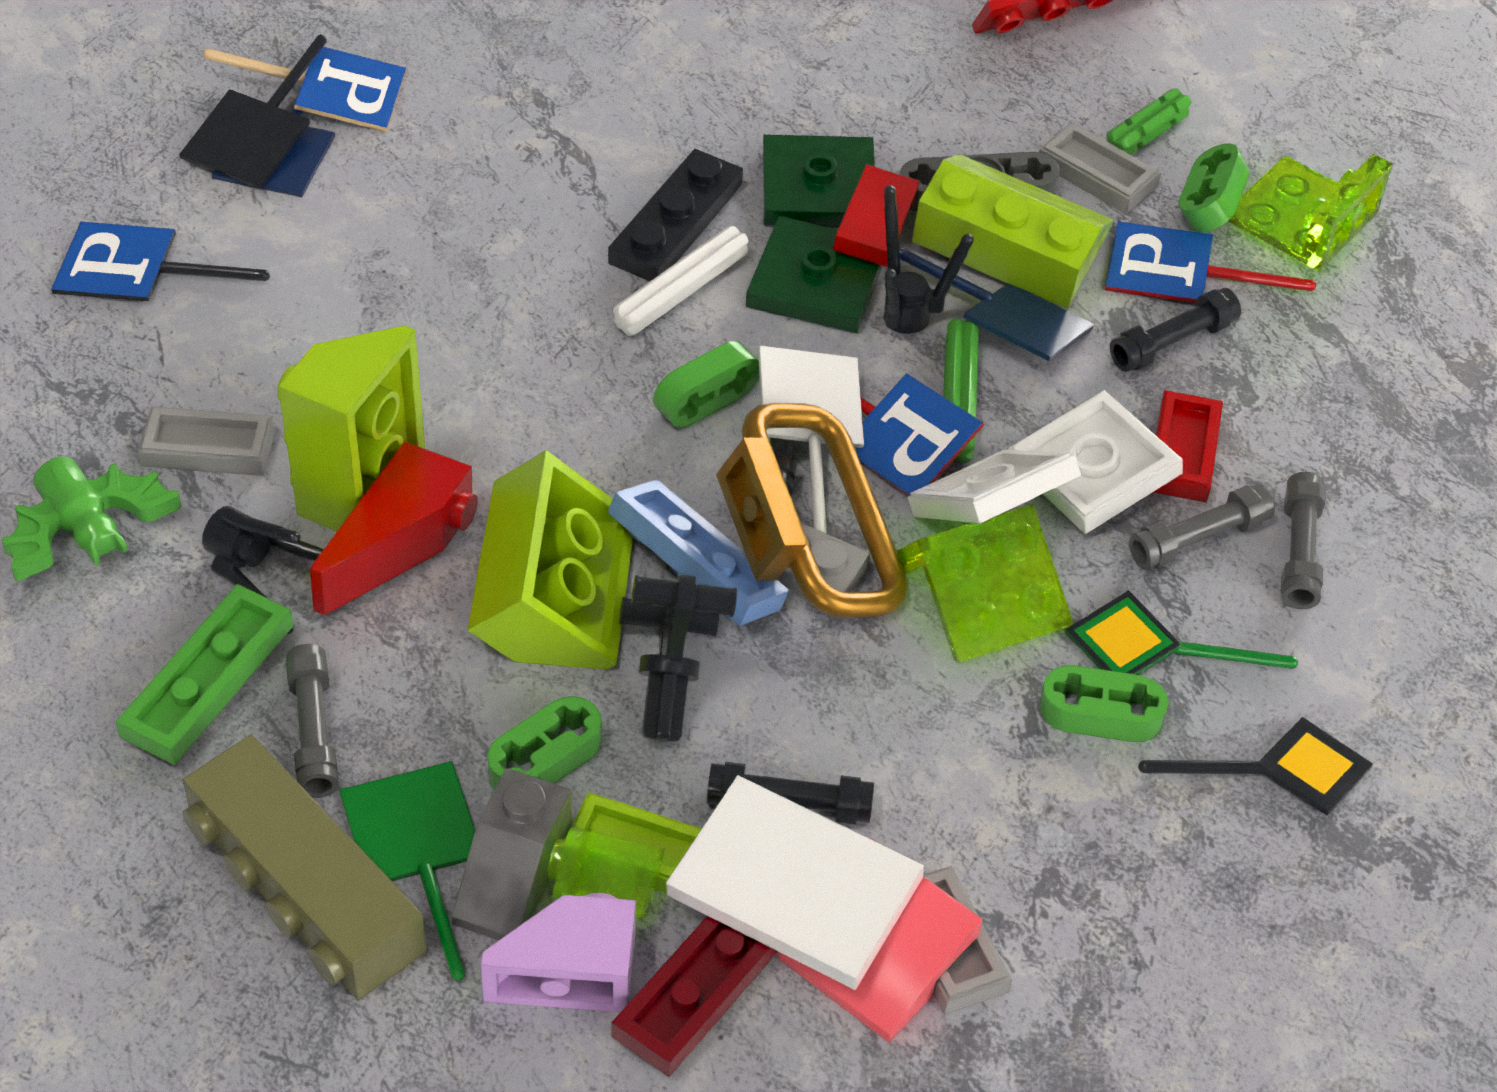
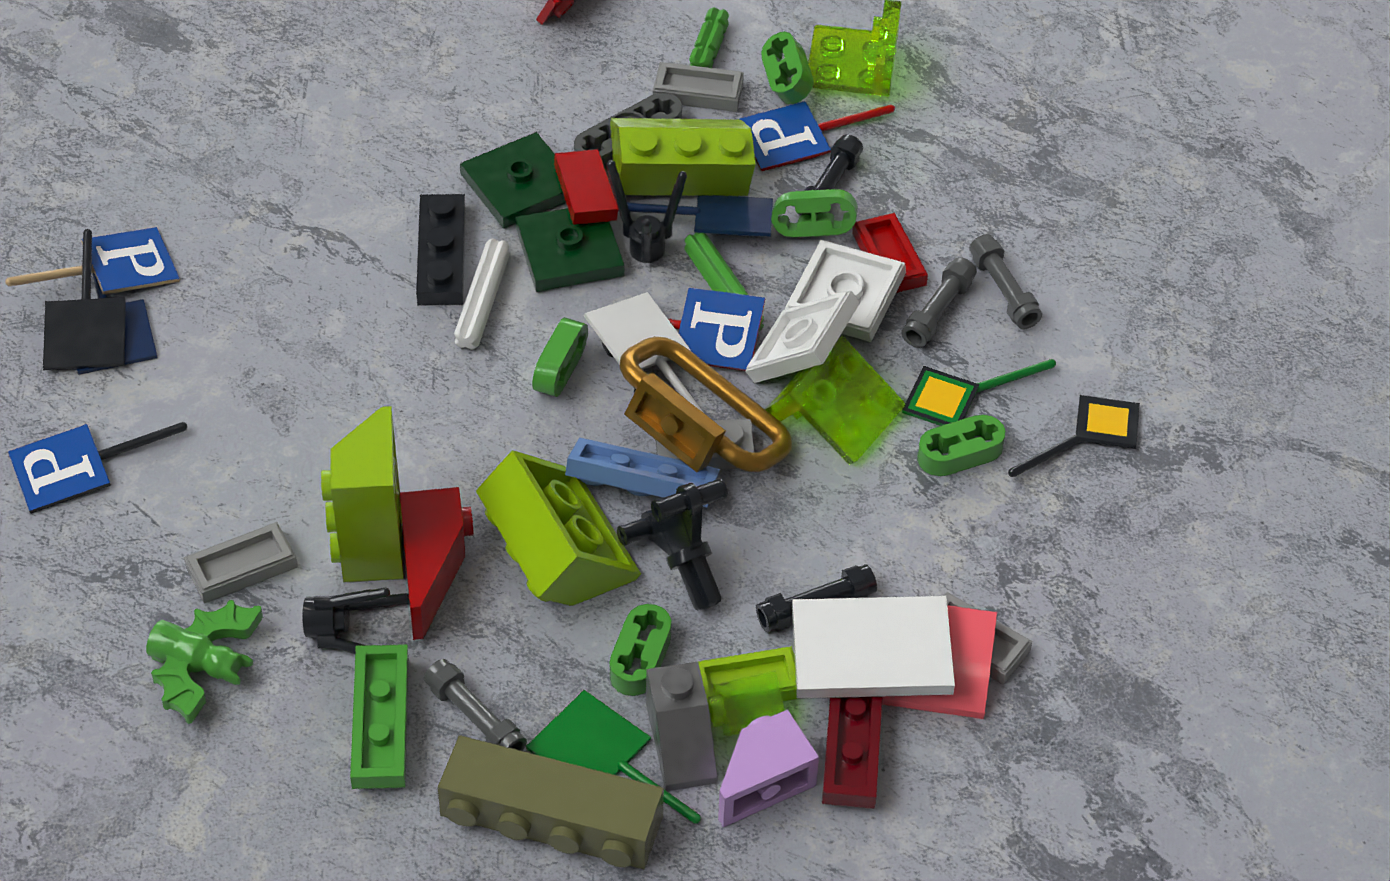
camera: 30 degrees left, 0 degrees up
(1124, 346) = (815, 223): none -> bright green beam

